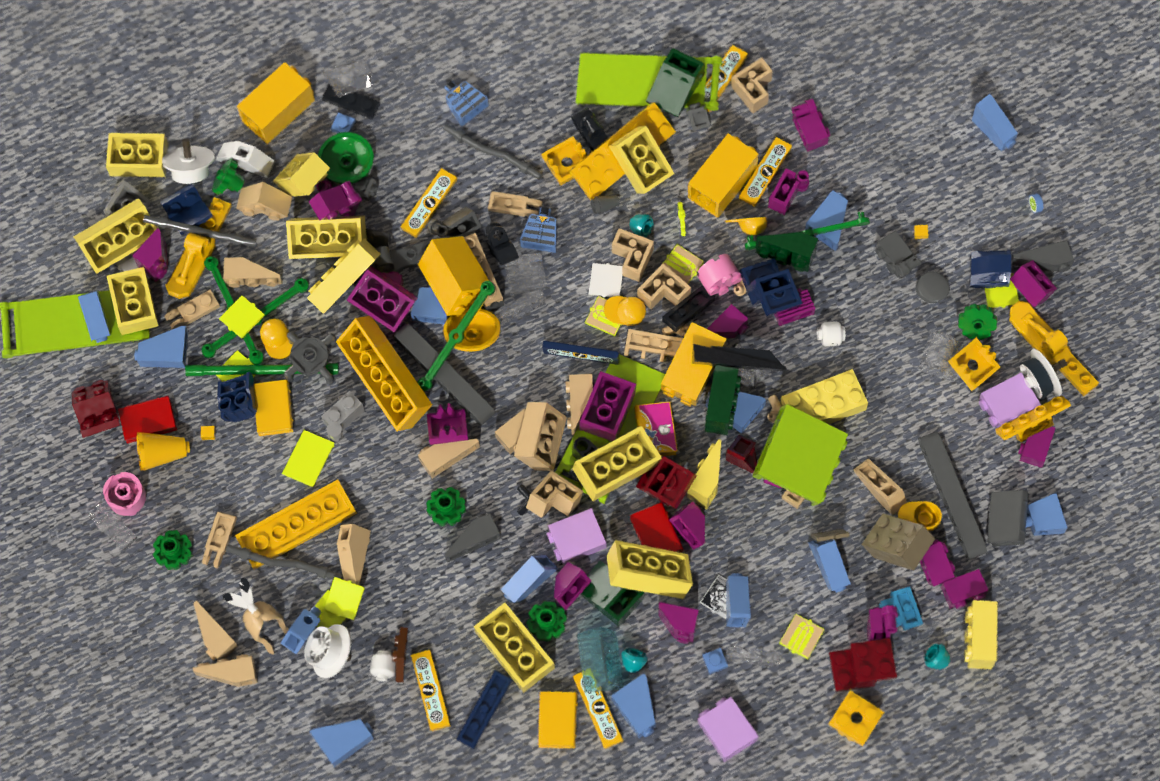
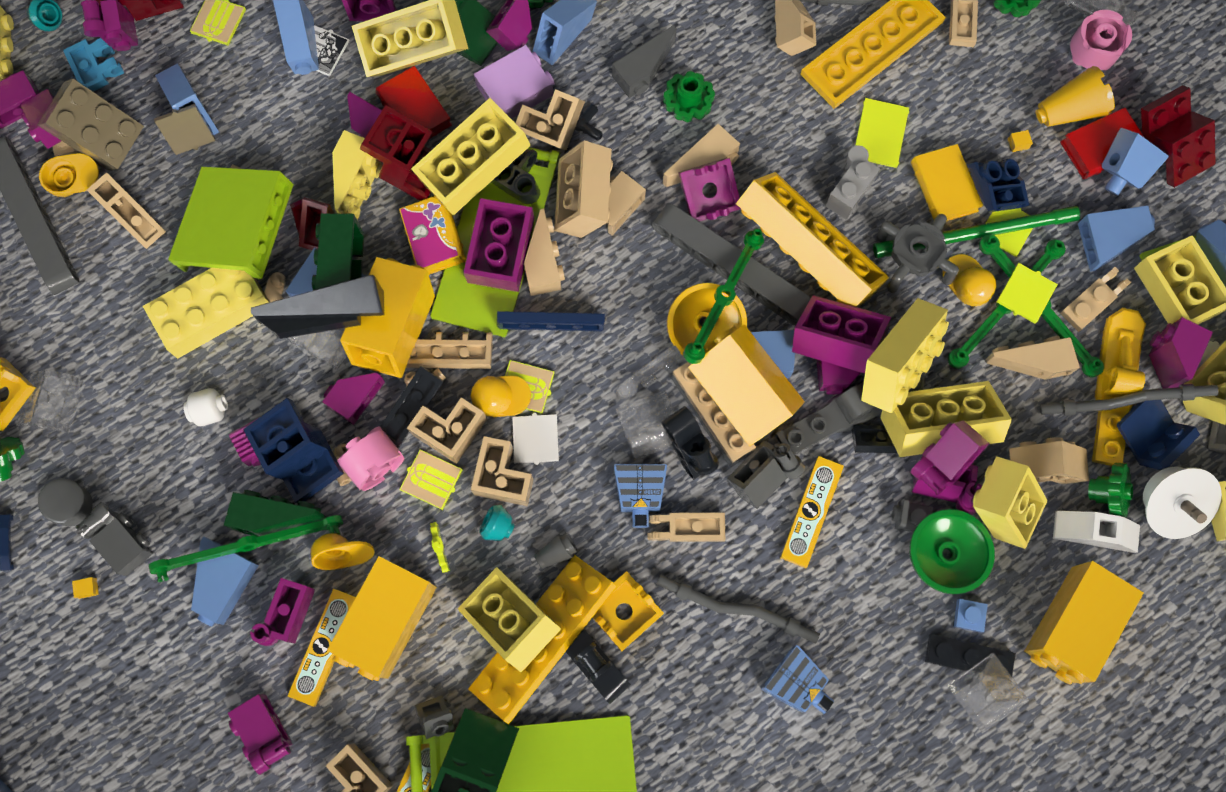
camera: 165 degrees right, 5 degrees up
(136, 394) = (1131, 161): none -> medium blue torso

